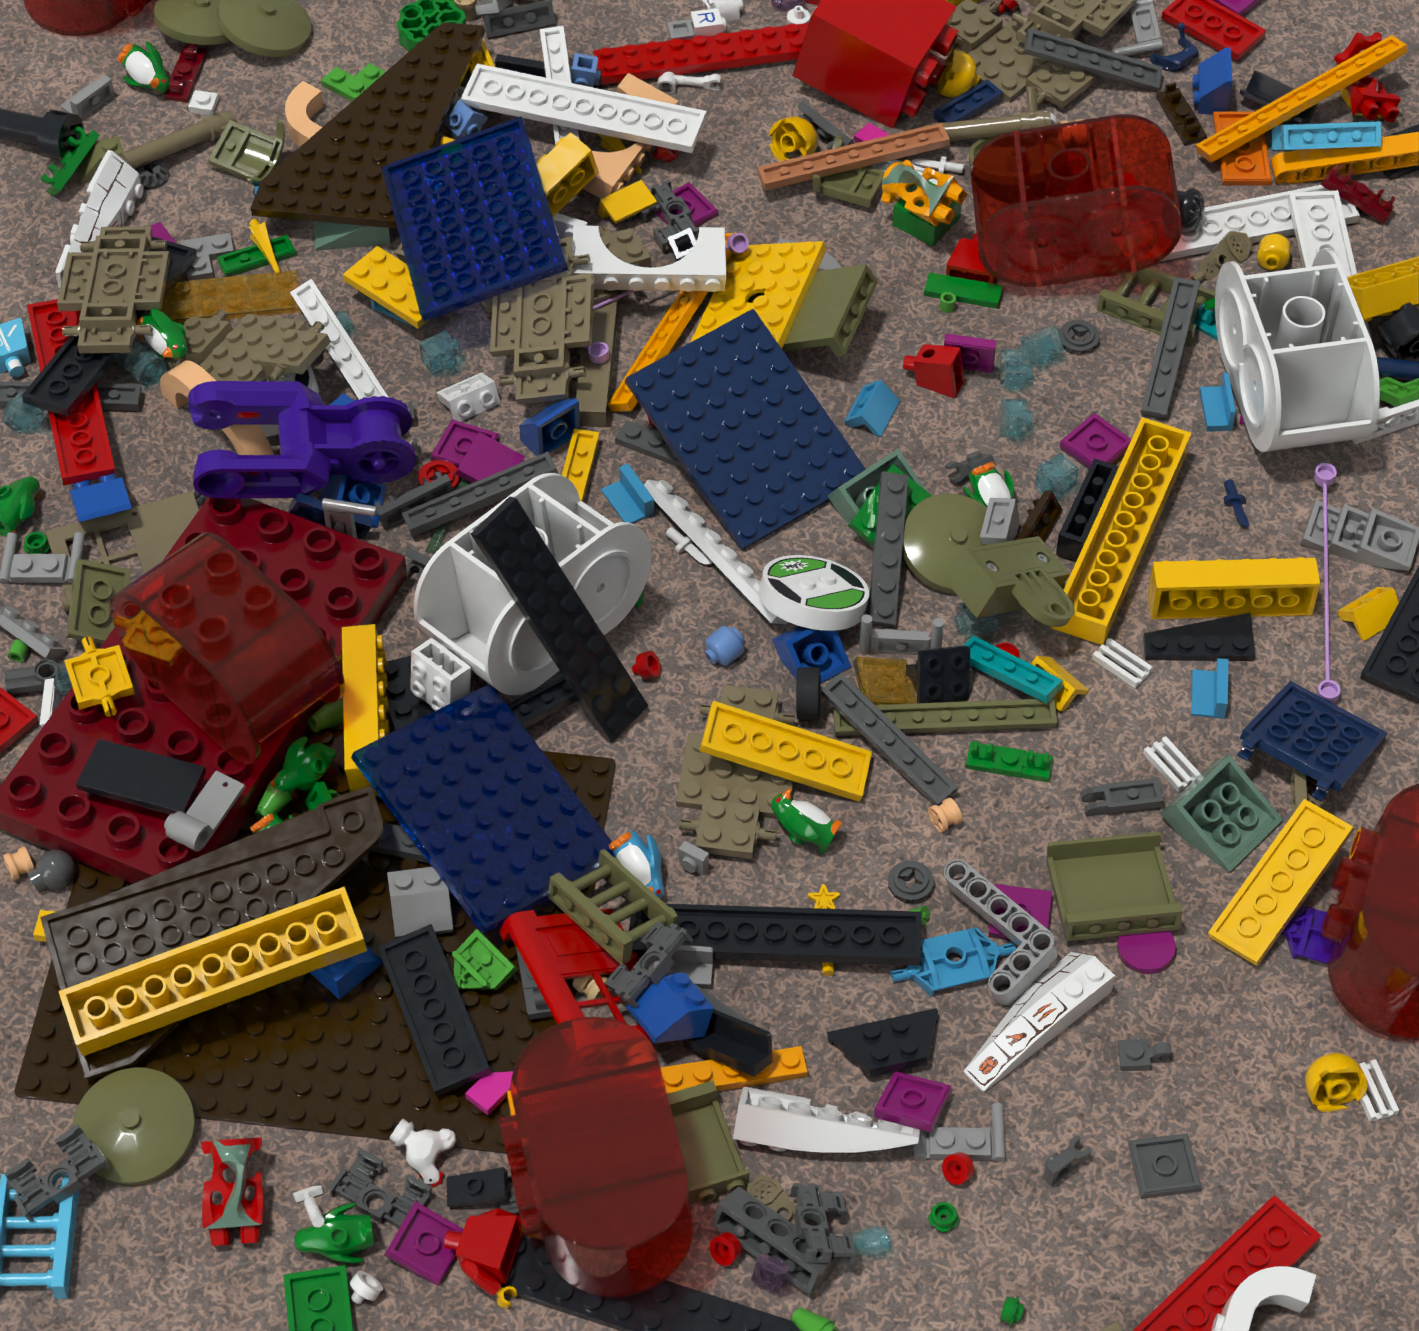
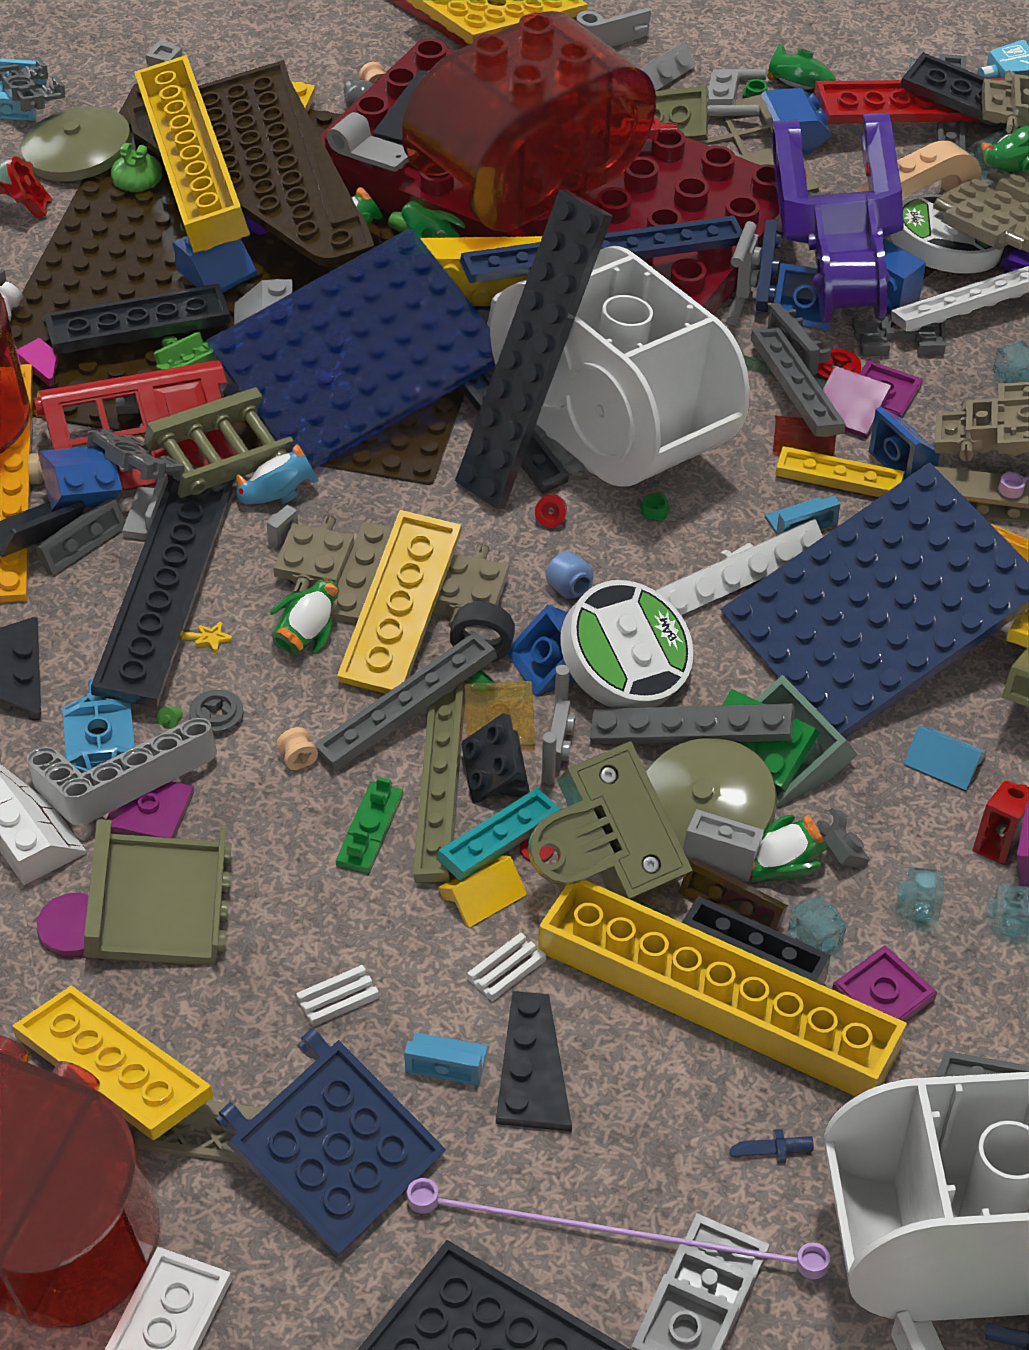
camera: 95 degrees right, 5 degrees down
(188, 1057) = (135, 169): none -> bright green hair
(373, 606) = (643, 242): none -> dark blue plate
(470, 397) = (950, 387): white bracket -> none
(1123, 797) = (292, 935): dark grey hinge -> none
(1222, 814) = (240, 1030): sand green slope -> none
(1233, 588) = (601, 1095): yellow brick -> none
(1371, 611) = (560, 1276): yellow panel -> none

